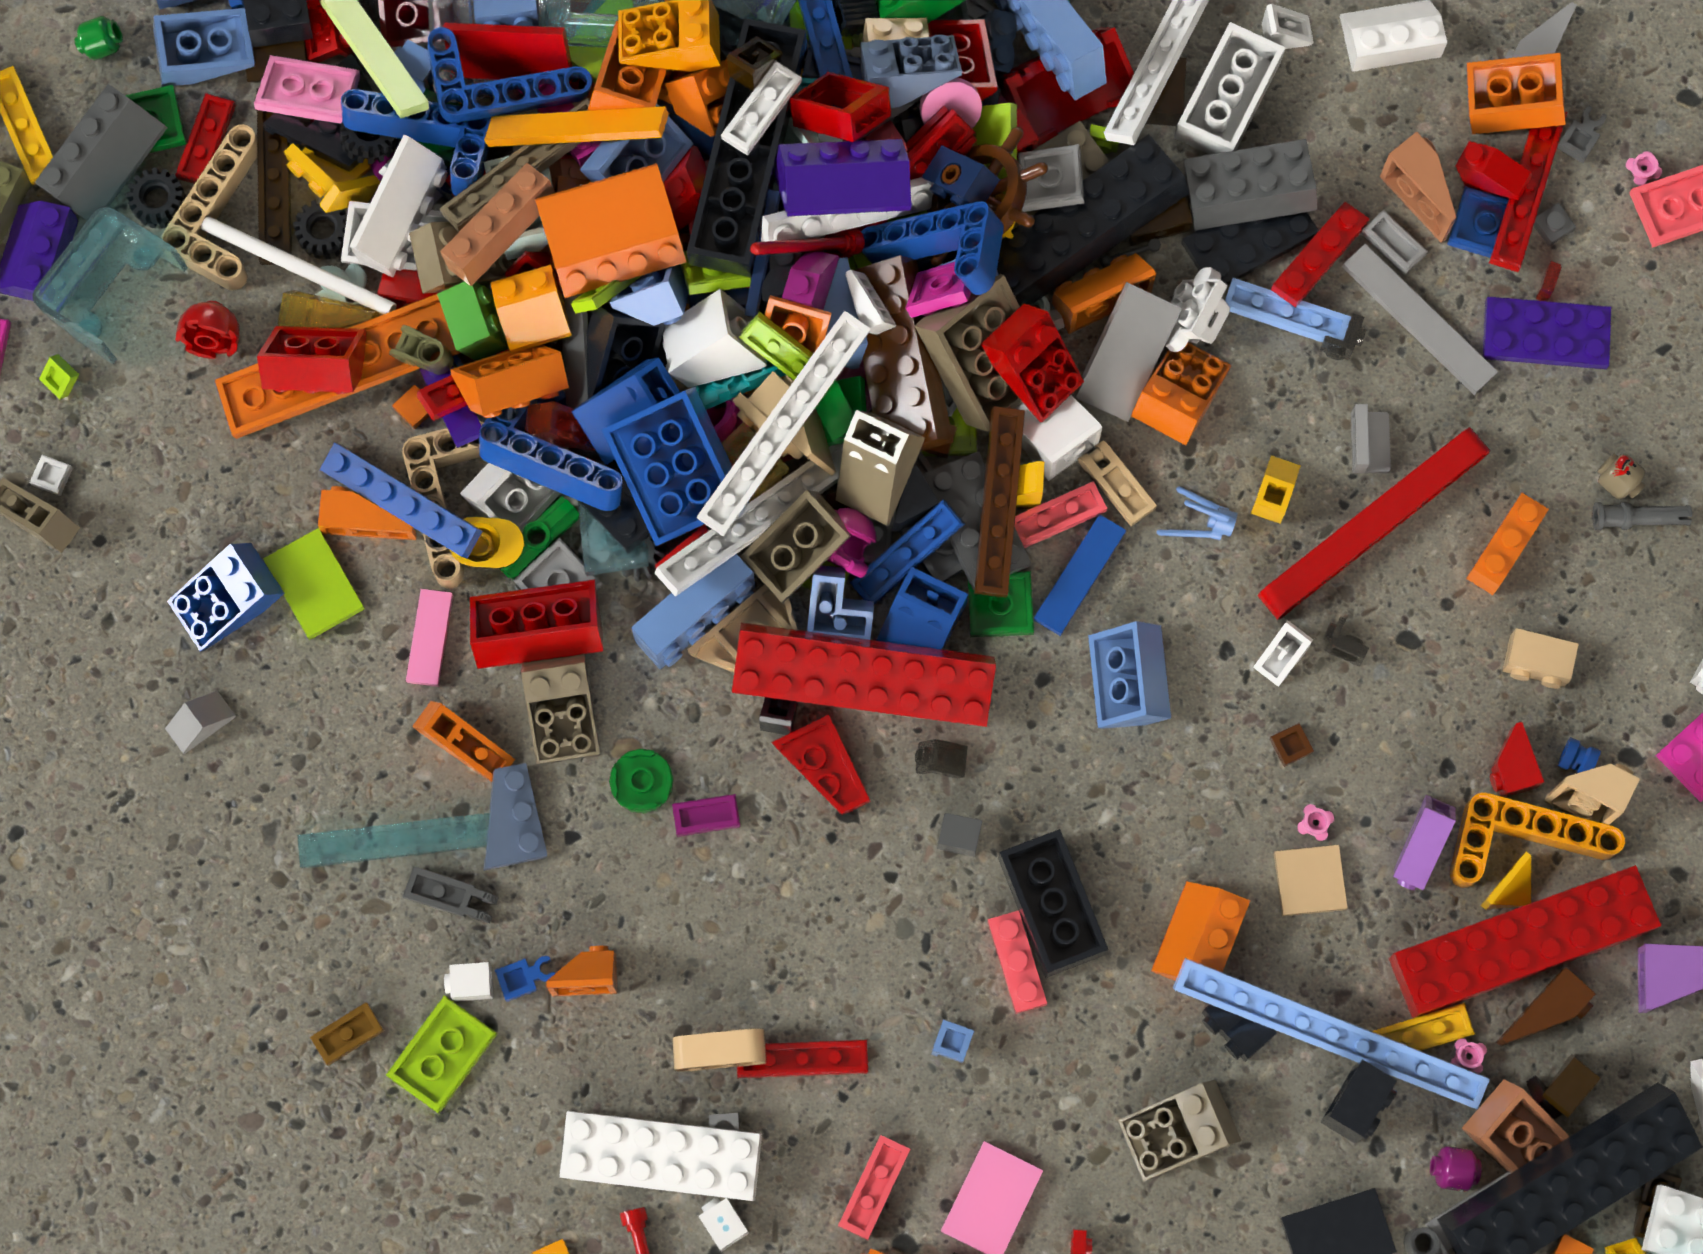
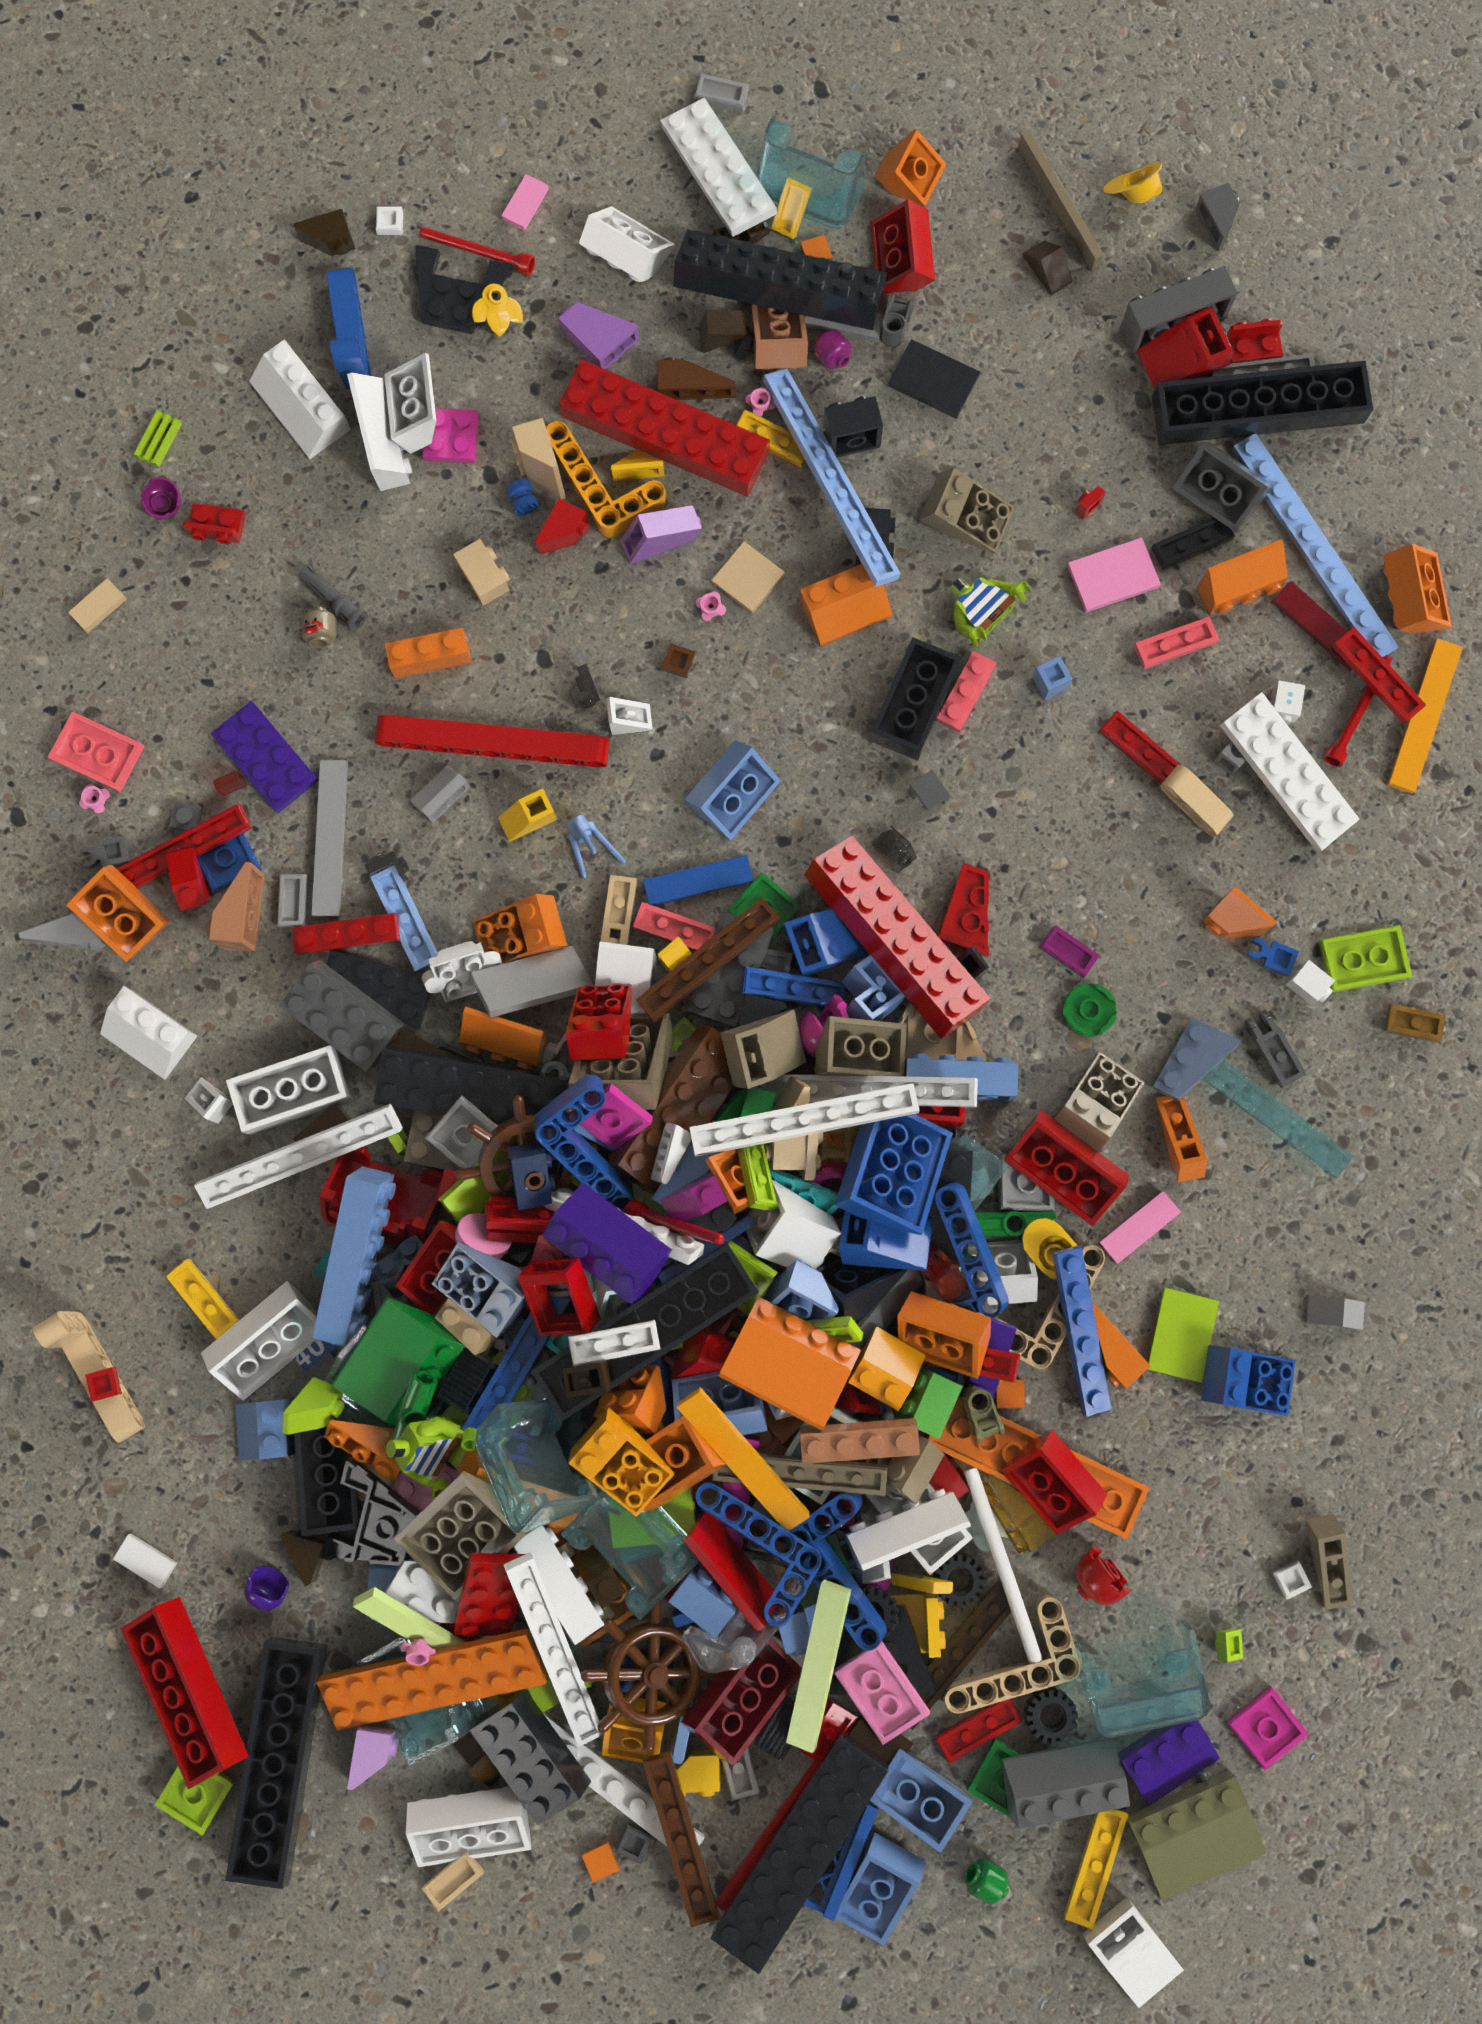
camera: 130 degrees left, 5 degrees up
(1077, 1049) = (984, 605): none -> torso

